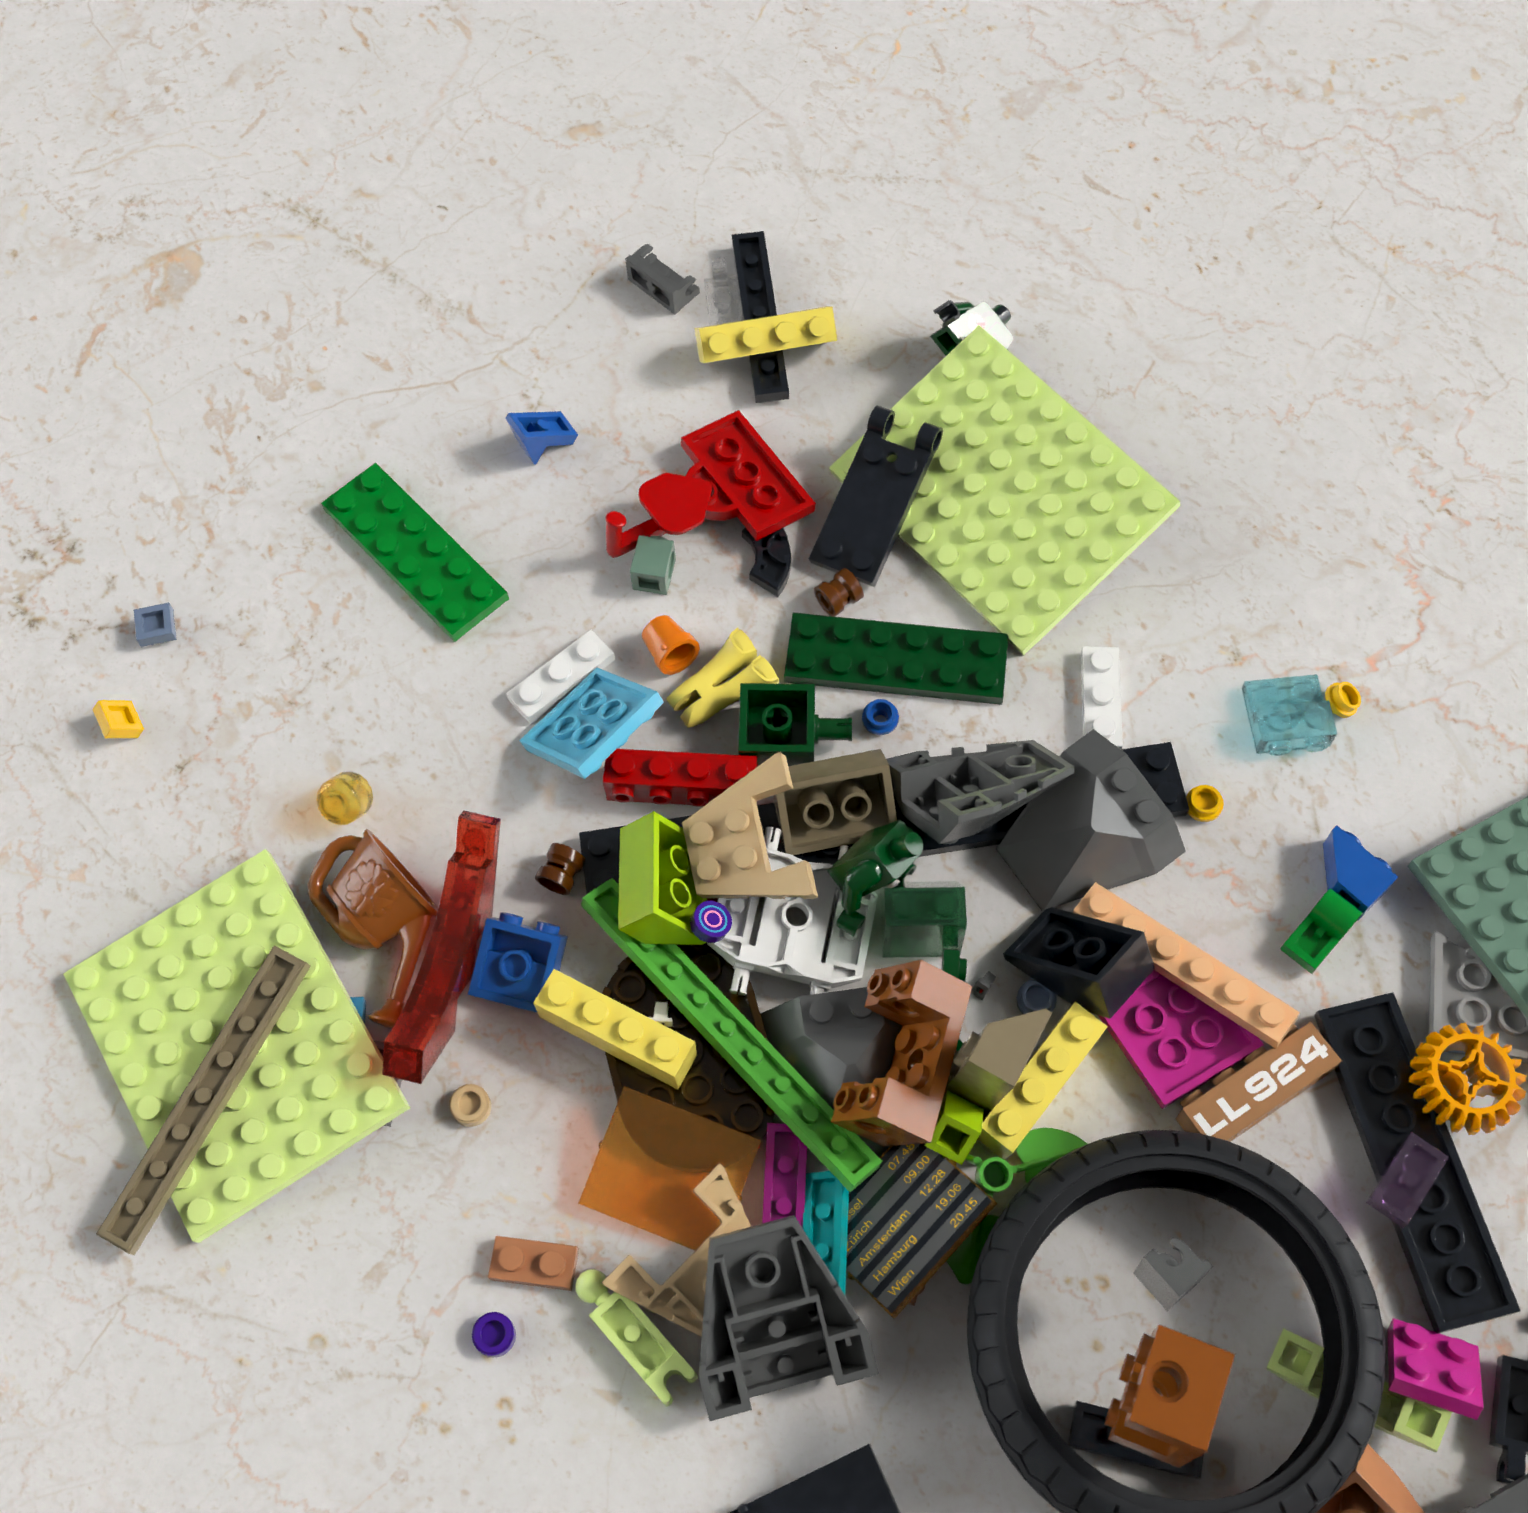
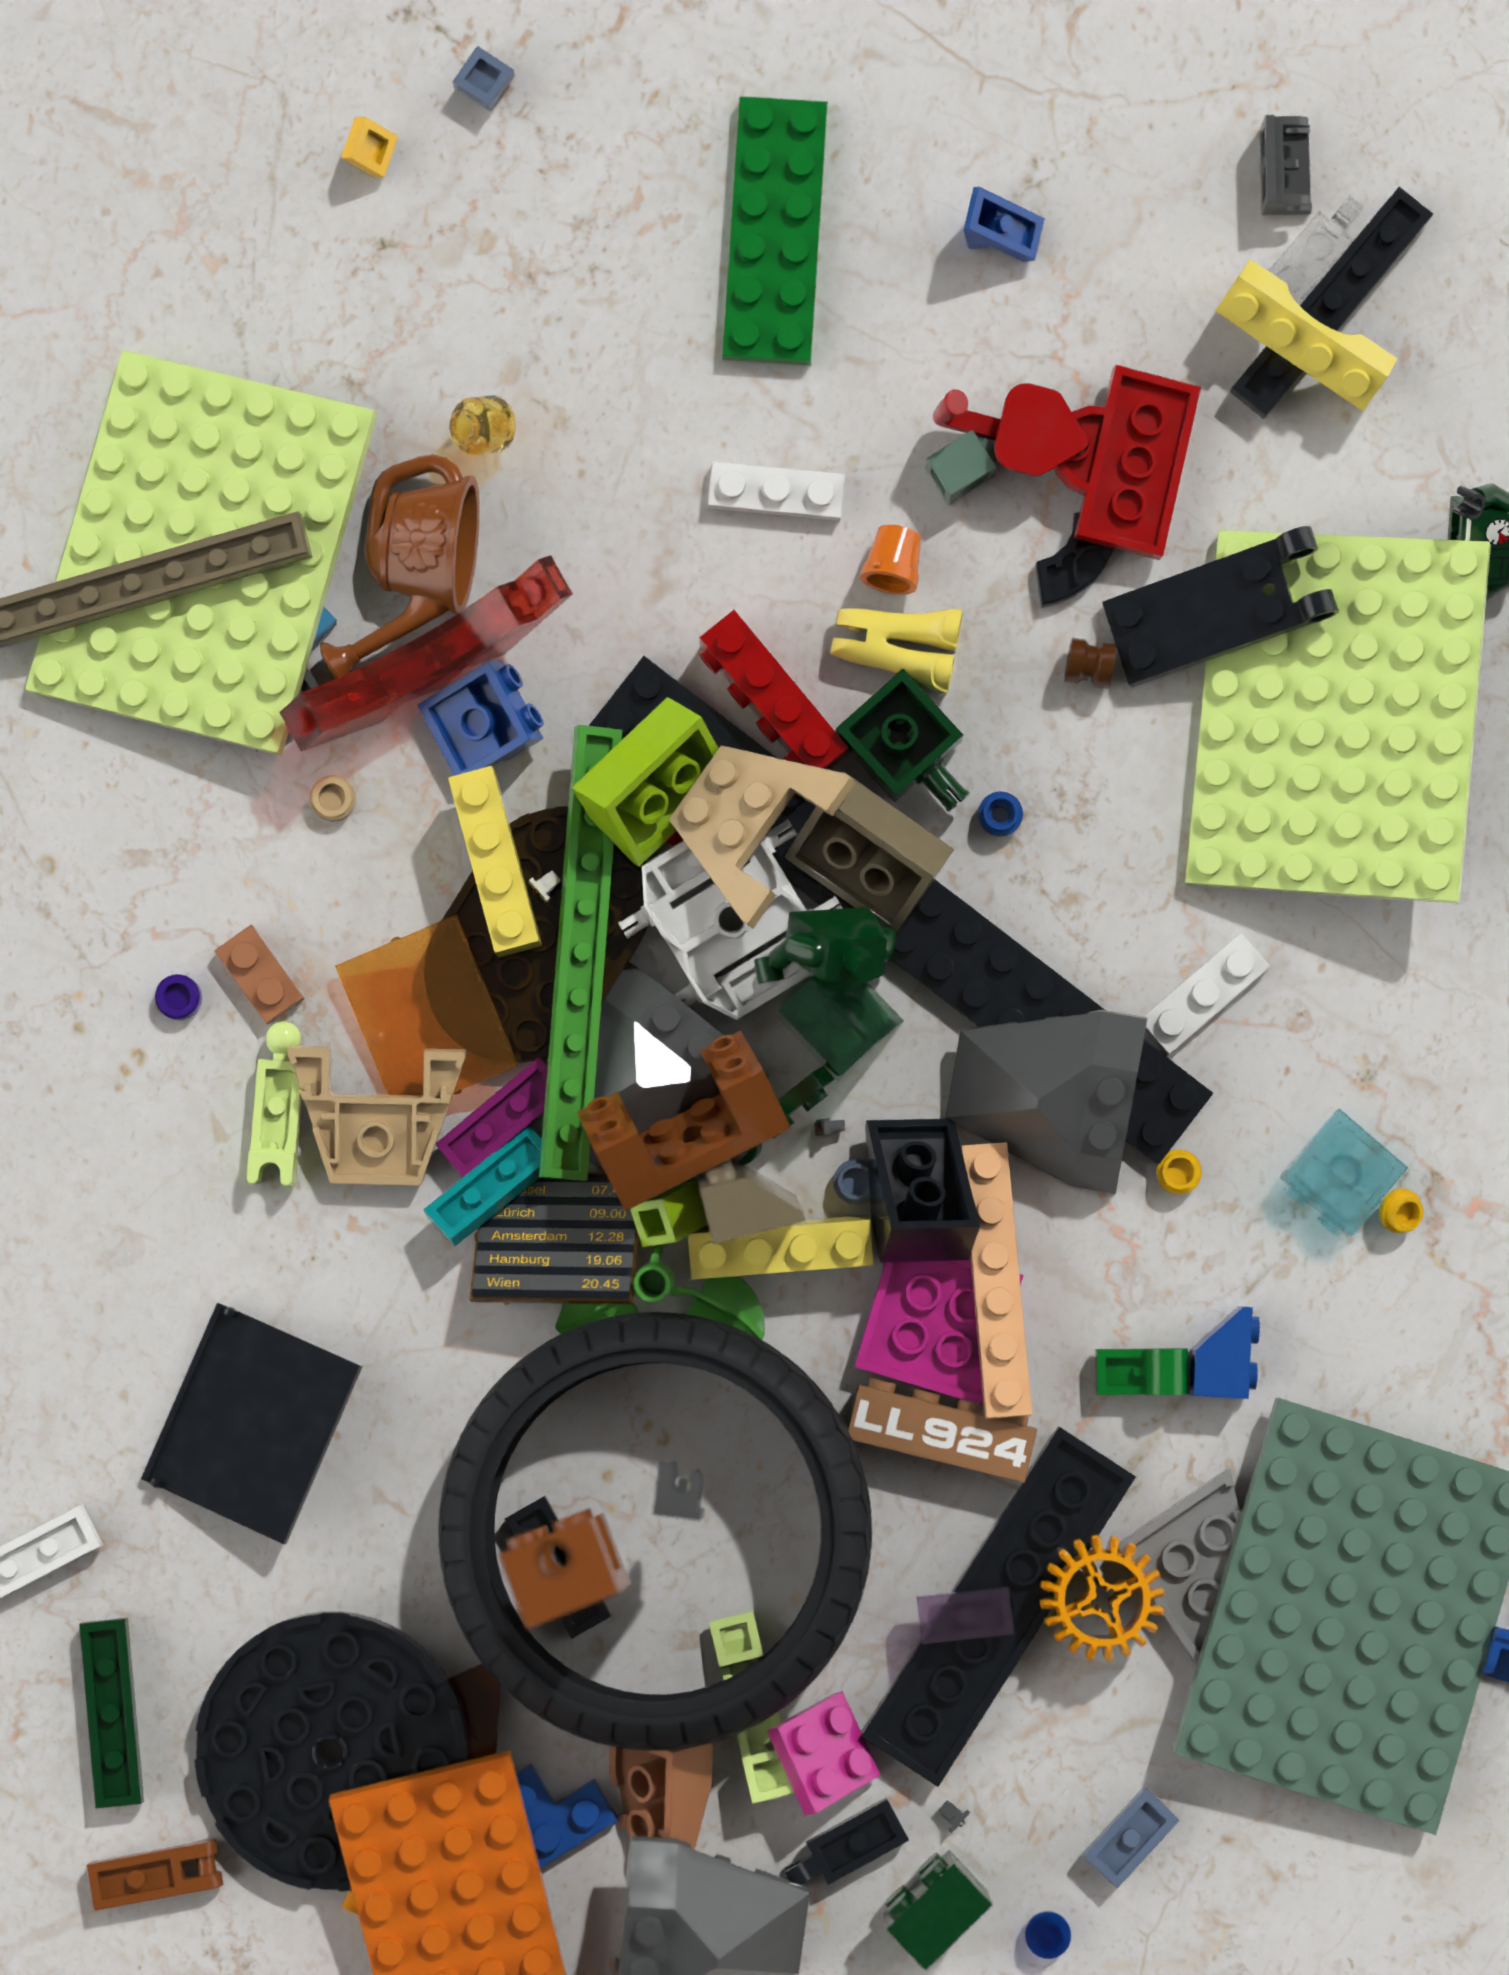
camera: 45 degrees right, 20 degrees up
(560, 869) = (595, 673): reddish brown wheel -> none
(591, 722) = (747, 570): medium azure plate -> none
(710, 921) = (653, 856): dark purple tile -> none
(774, 1319) = (380, 1207): dark grey wedge -> none
(897, 658) = (1075, 774): dark green plate -> none
(972, 791) = (991, 964): dark grey wedge -> none

